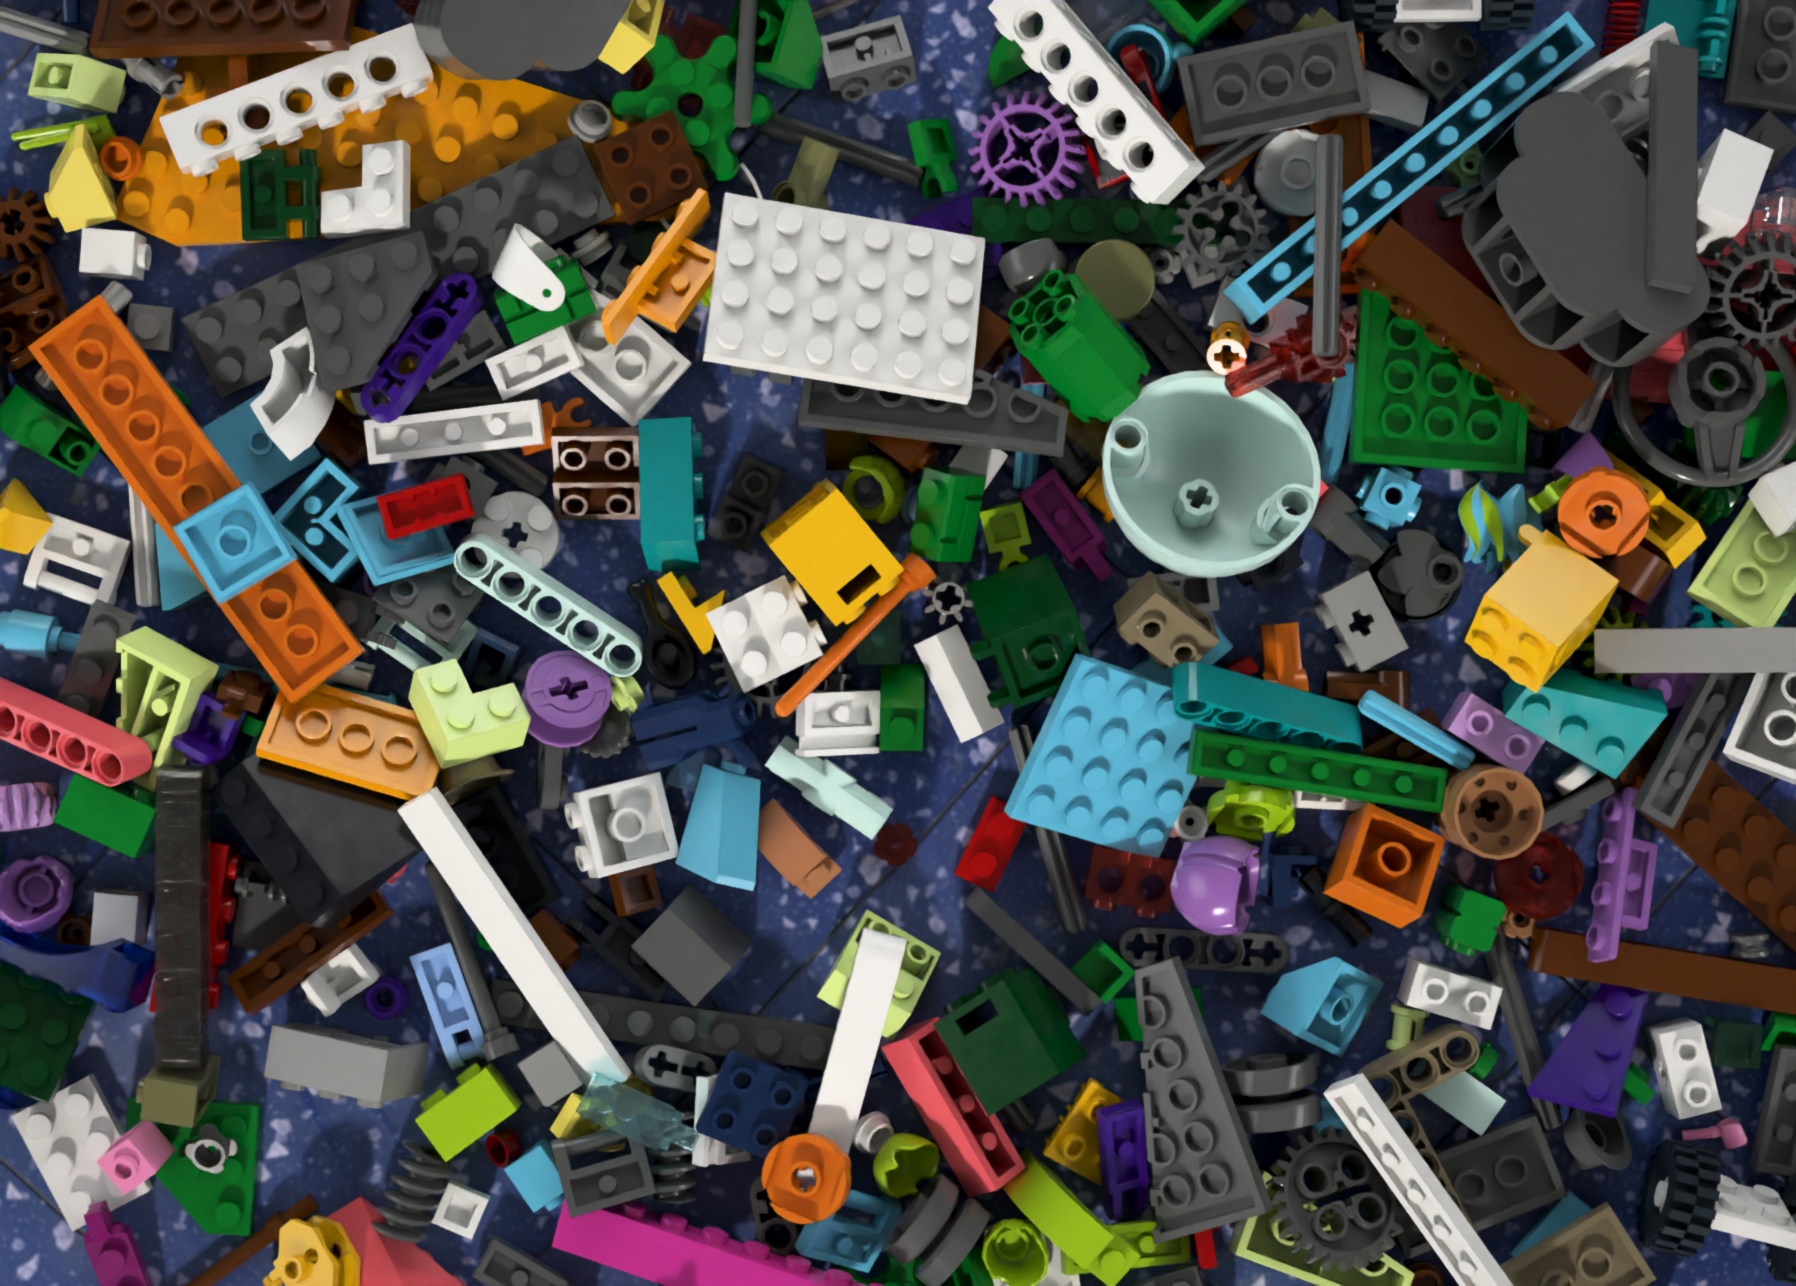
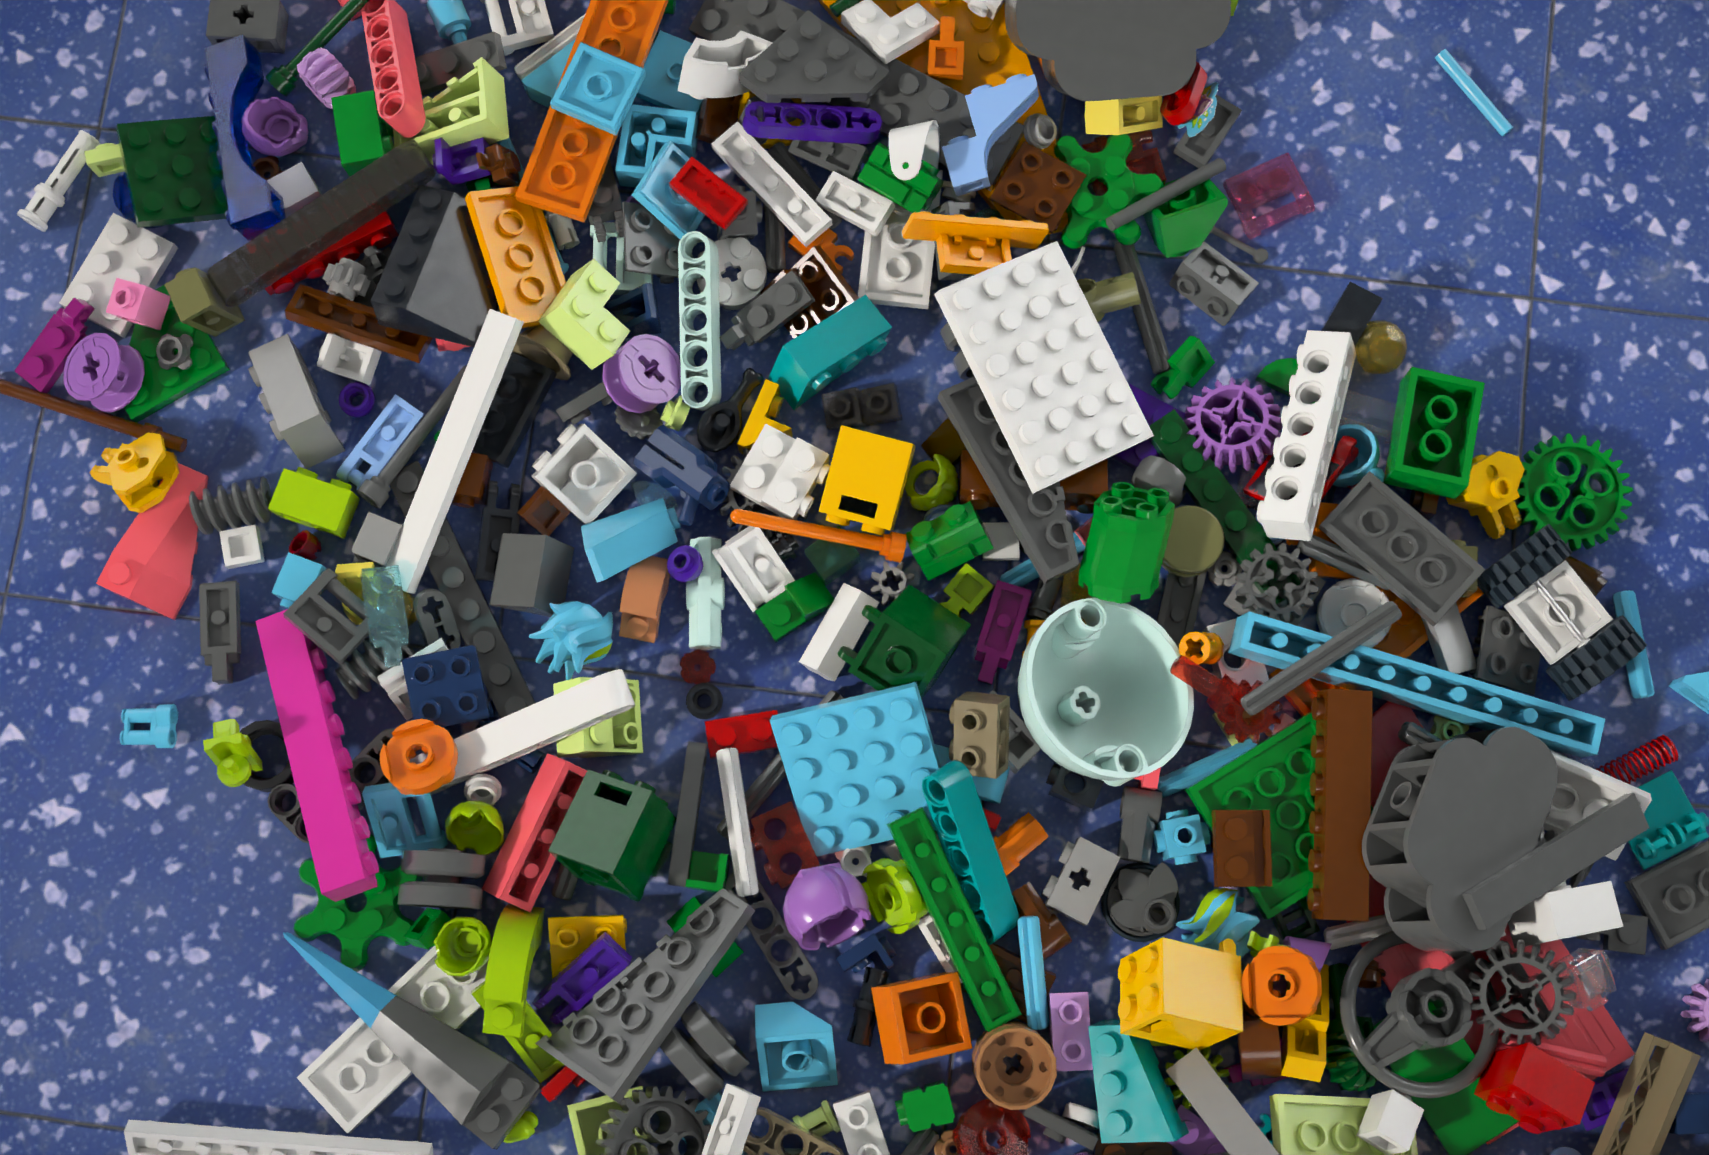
camera: 55 degrees right, 10 degrees down
(183, 1234) = (103, 372): none -> medium lavender piece
(255, 928) = (346, 279): none -> light grey gear
(441, 157) = (946, 55): none -> orange plate
(545, 163) = (992, 114): none -> light blue arch
(586, 527) = (768, 312): none -> dark grey hinge
(787, 946) = (575, 637): none -> medium azure hair
(798, 782) = (691, 569): none -> dark purple plate
(940, 872) = (704, 689): none -> black plate
(1077, 911) = (737, 822): none -> white axle
(1444, 451) = (1241, 848): none -> reddish brown plate

